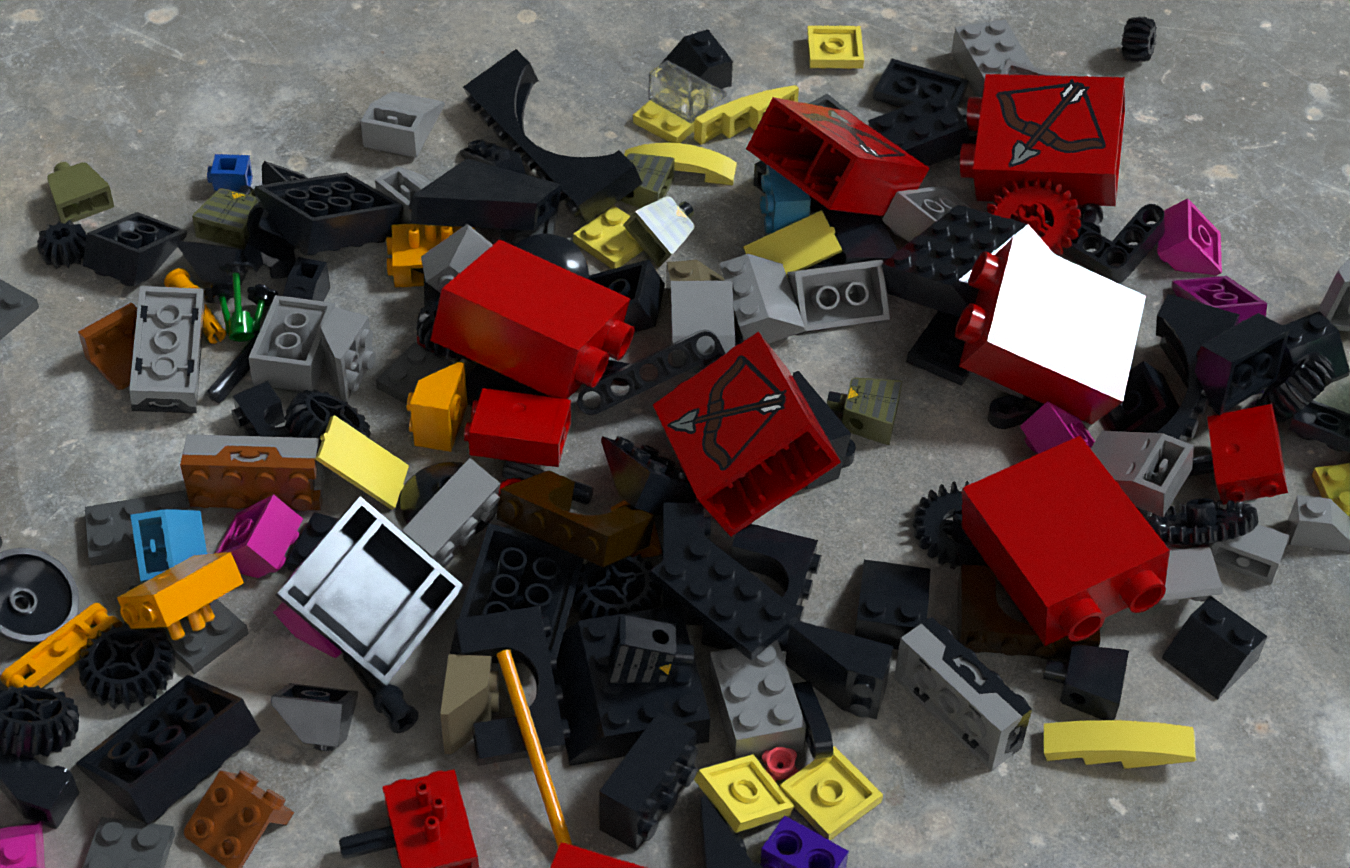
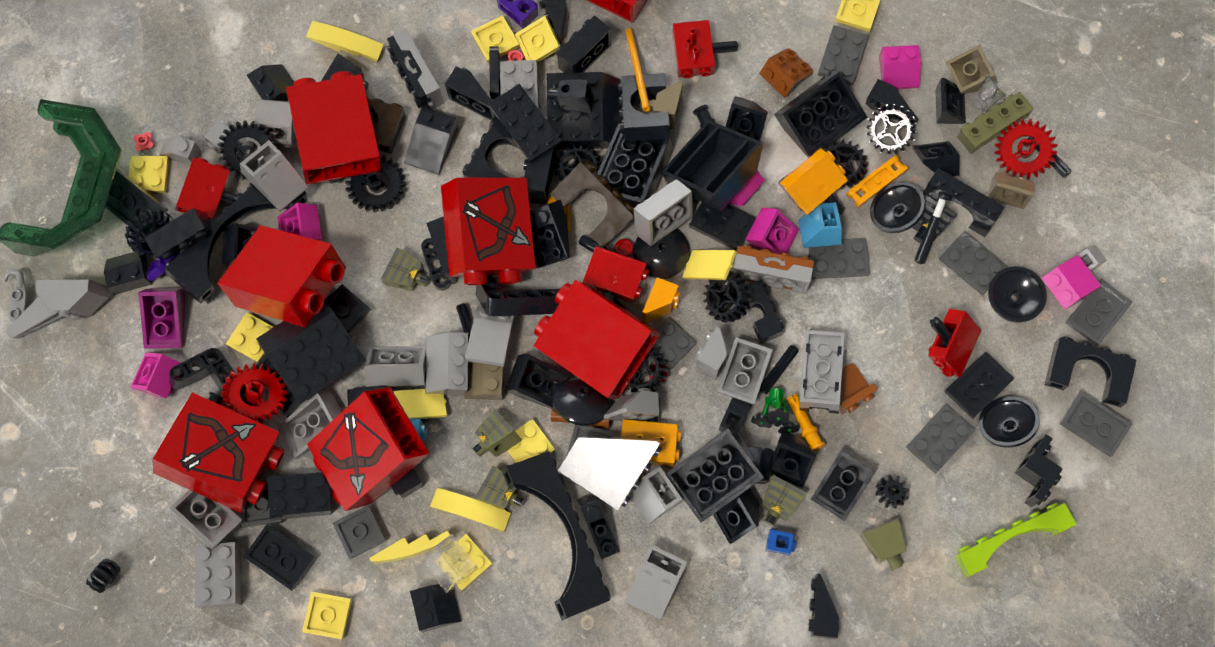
camera: 165 degrees left, 25 degrees up
(168, 116) = (824, 615): none -> black slope

